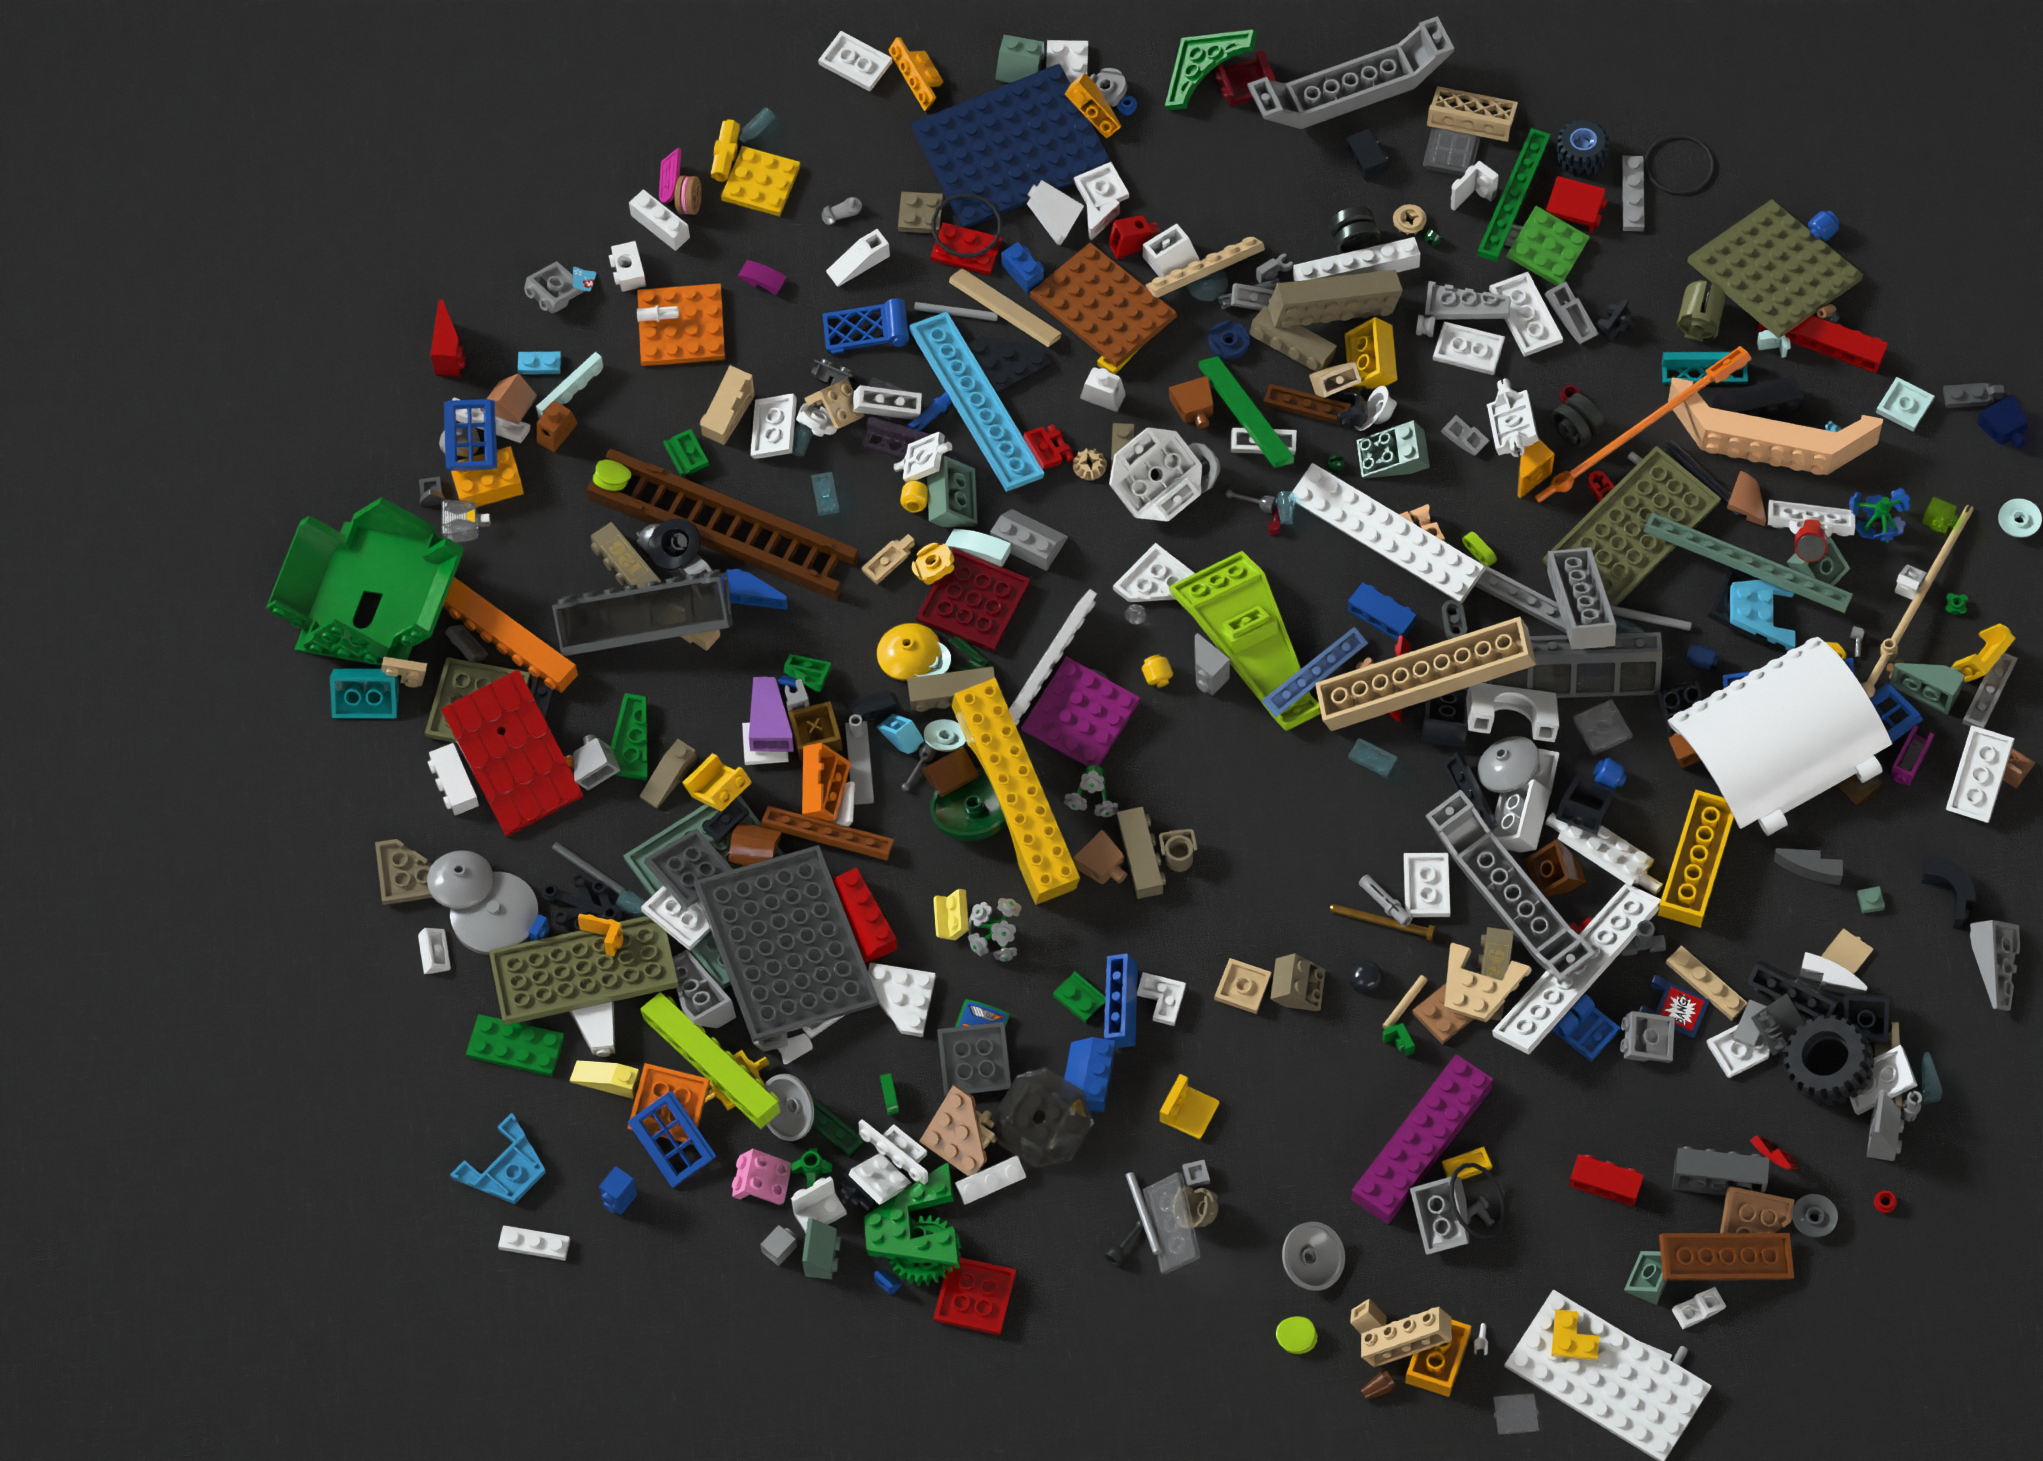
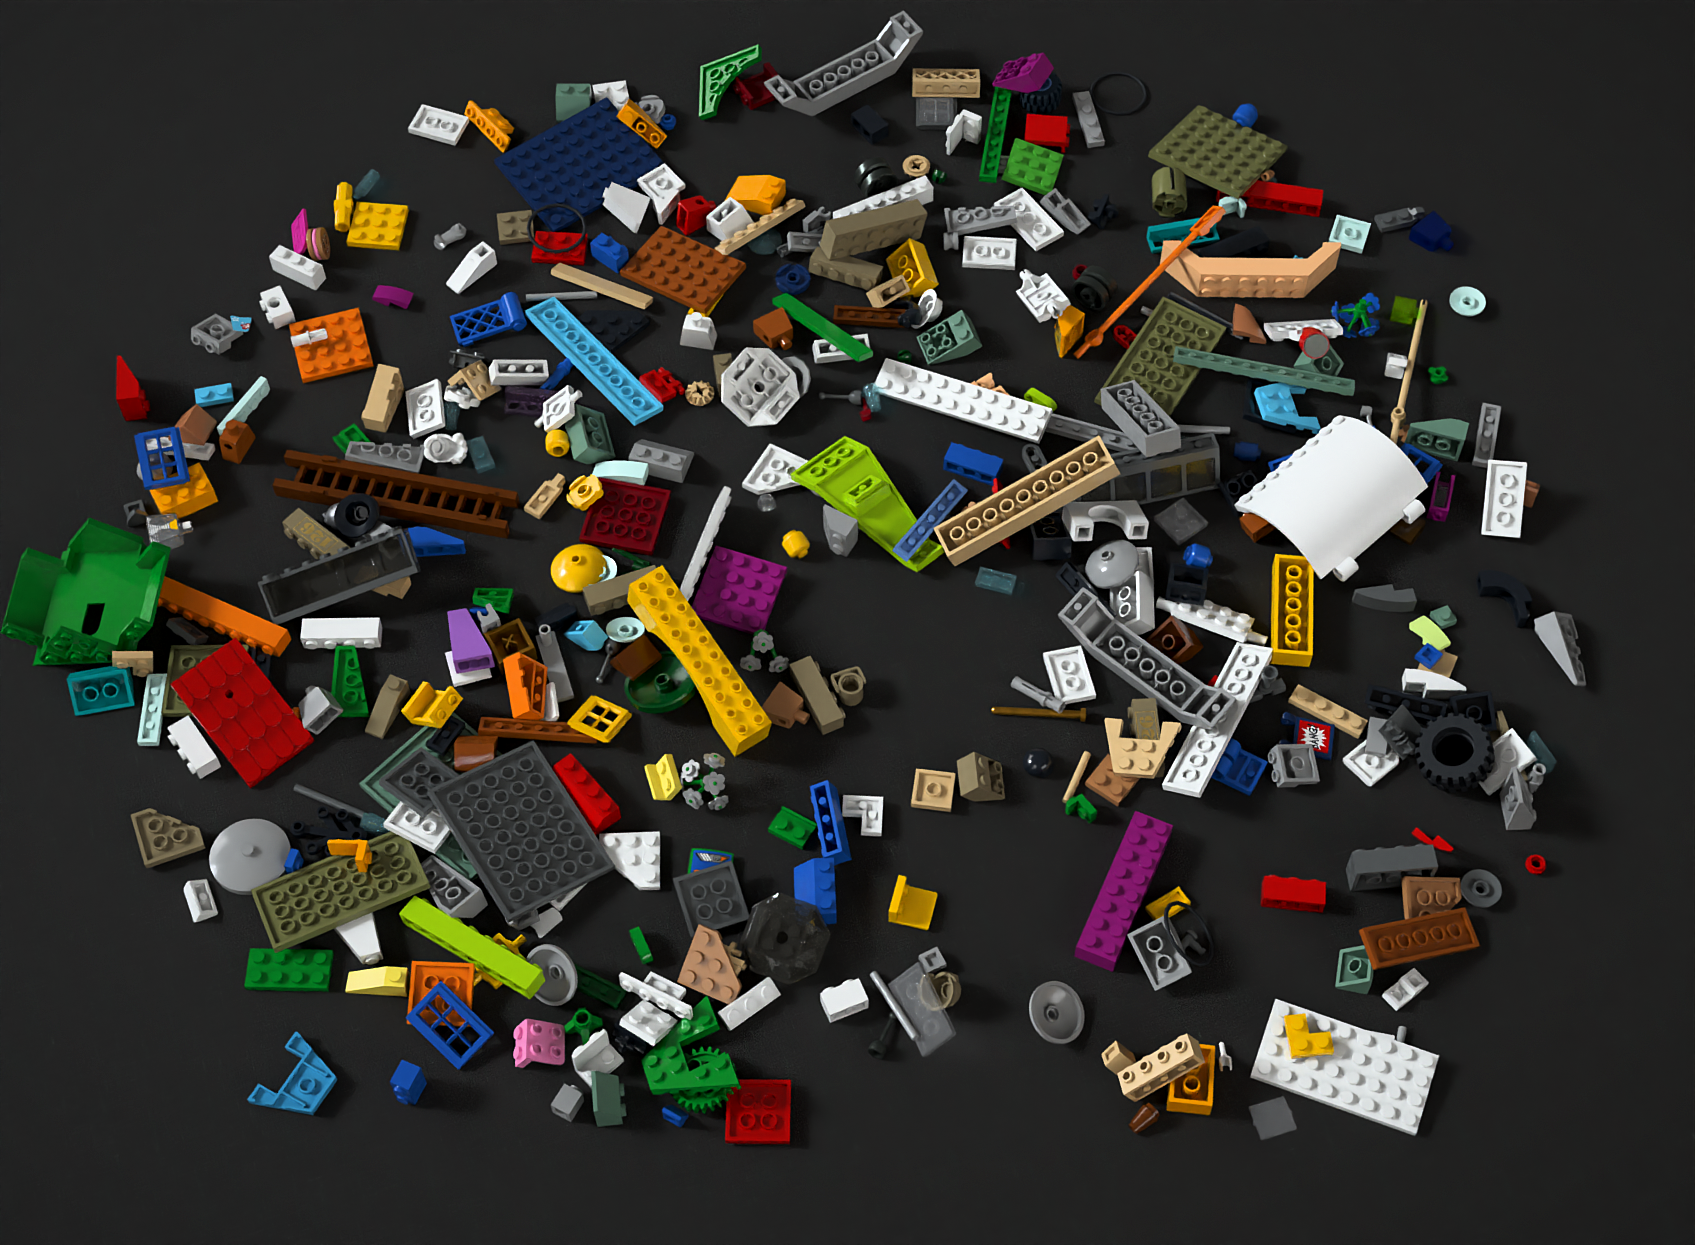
camera: 15 degrees left, 5 degrees down
(415, 726) = (151, 711): none -> light aqua plate
(462, 888) = (214, 839): light grey dish -> none
(534, 1243) = (337, 1147): white plate -> none
(611, 475) = (292, 470): lime piece -> none
(633, 678) = (341, 632): none -> white brick
(726, 479) = (388, 456): none -> light grey wing
(787, 480) = (445, 448): none -> white hair
(869, 831) = (585, 710): none -> yellow piece
(1091, 1196) = (844, 999): none -> white brick
(1212, 221) = (758, 193): none -> light orange slope
(1296, 1335) = (1058, 1087): lime piece -> none
(1461, 434) = (1005, 319): light grey slope -> none
(1565, 125) = (1024, 74): none -> magenta slope
(1838, 942) = (1428, 656): none -> blue plate
(1849, 916) = (1430, 633): none -> yellowish green slope
(1997, 641) = (1481, 397): yellow panel -> none

